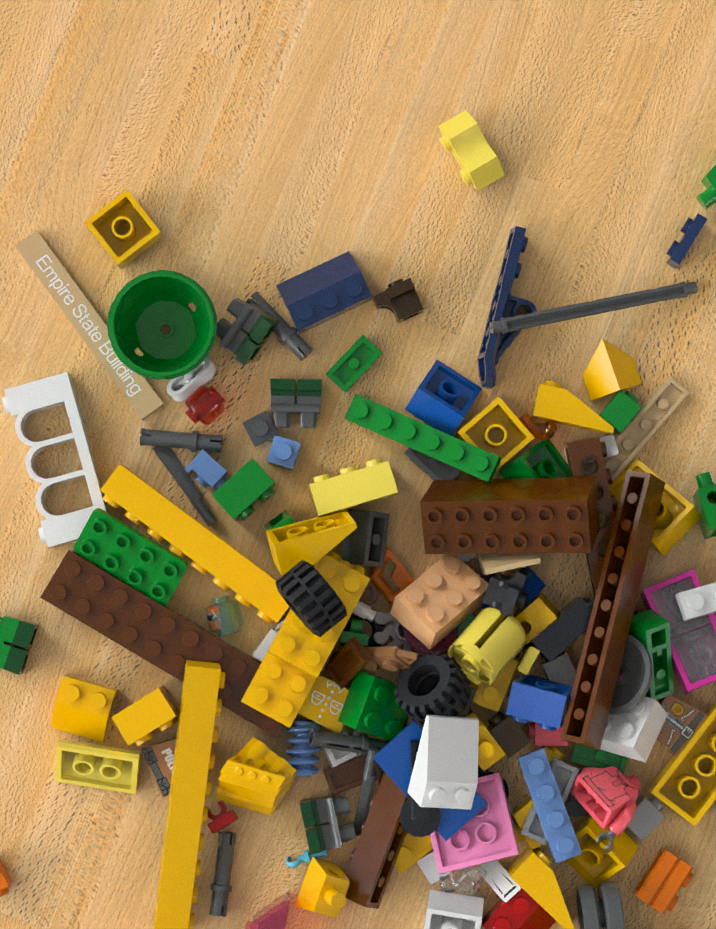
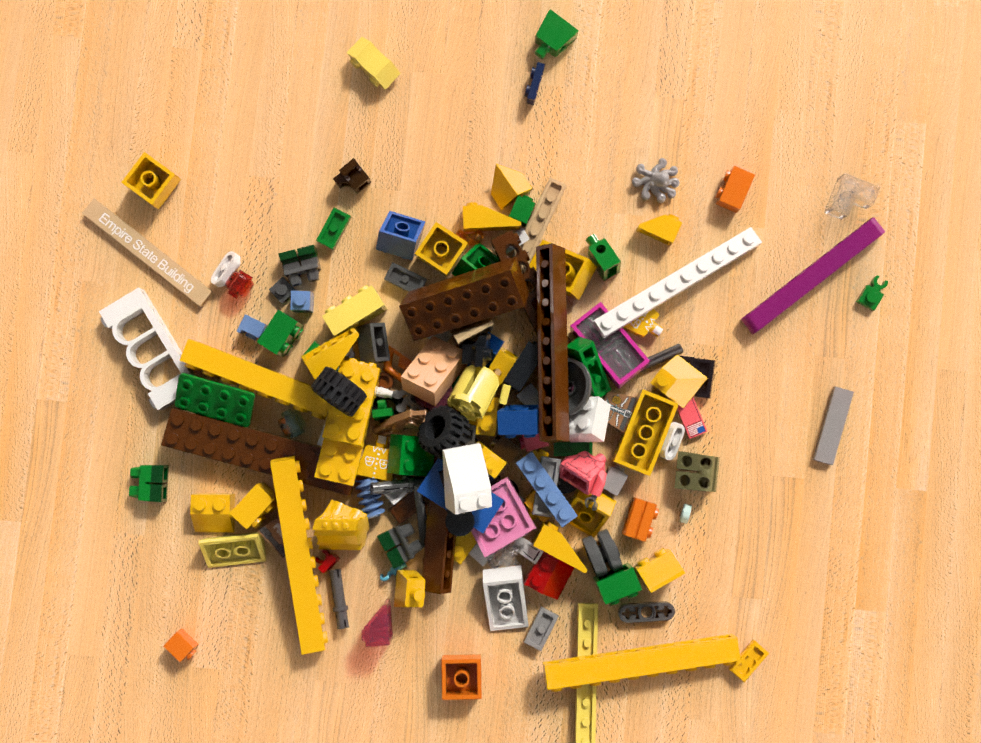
camera: 10 degrees left, 0 degrees up
(146, 307) = (180, 228): green piece -> none
(176, 469) = (230, 331): dark grey piece -> none
(181, 440) = (230, 312): dark grey pin -> none
(248, 331) = (254, 225): hips -> none
(283, 330) = (282, 221): dark grey pin -> none
(324, 292) = (301, 186): dark blue slope -> none
(348, 662) = (382, 430): reddish brown tile -> none
(423, 438) = (393, 265): green plate -> none
(503, 306) = (426, 171): dark blue piece -> none
(592, 308) = (468, 152): dark grey piece -> none

